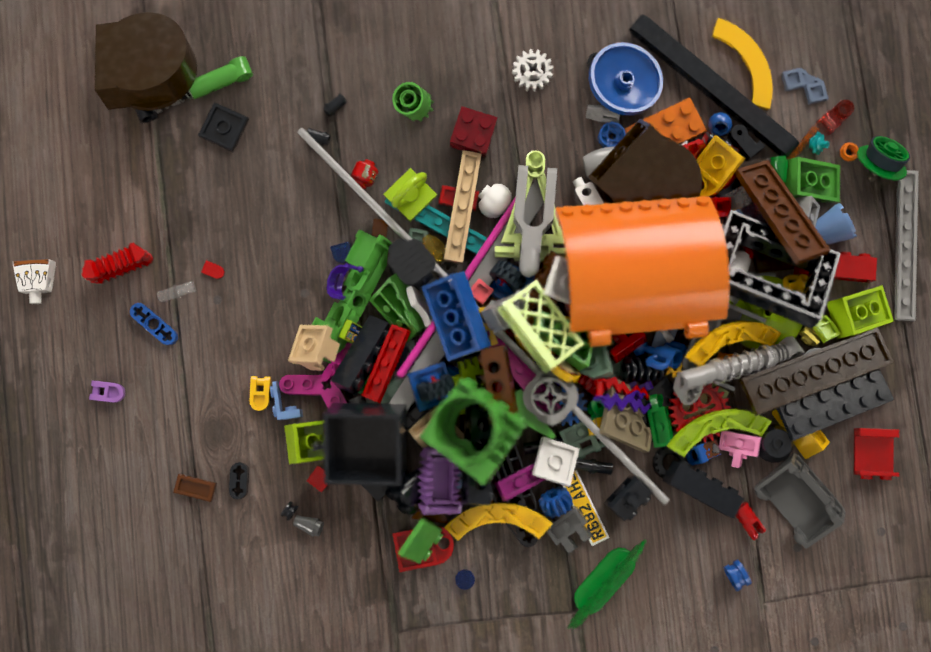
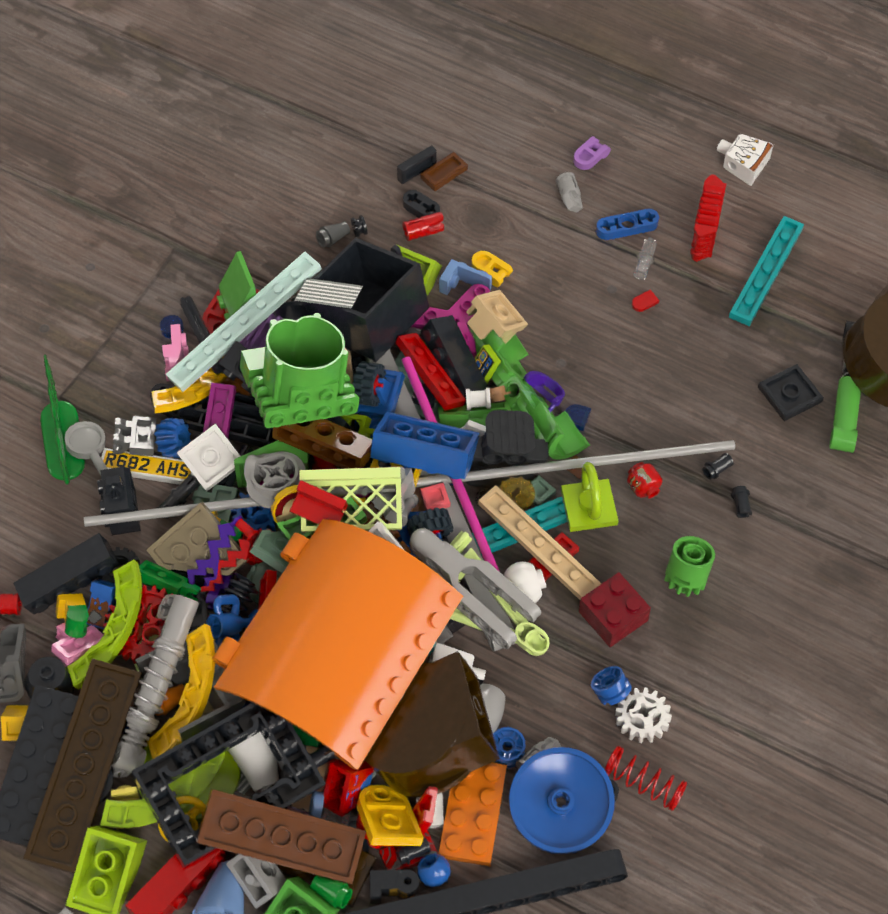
camera: 125 degrees right, 25 degrees down
(130, 202) = (766, 271): none -> teal plate
(154, 382) = (569, 191): none -> light grey hinge
(205, 509) = (416, 164): none -> black tile
(258, 465) = (423, 226): none -> red hinge
(370, 309) = (497, 393): none -> medium nougat plate
(388, 313) = (478, 398): none -> white bush
(391, 461) = (328, 293): none -> sticker
(445, 512) = (243, 321): none -> light aqua plate
(461, 547) = (198, 325): none -> black axle
(498, 546) = (177, 350): none -> bright pink slope
(531, 106) = (611, 685): none -> blue wheel
(563, 341) = (317, 504): none -> red panel
(576, 62) = (614, 762): none -> red piece
(597, 560) = (86, 441): none -> light grey piece
(724, 461) = (75, 613): none -> leg

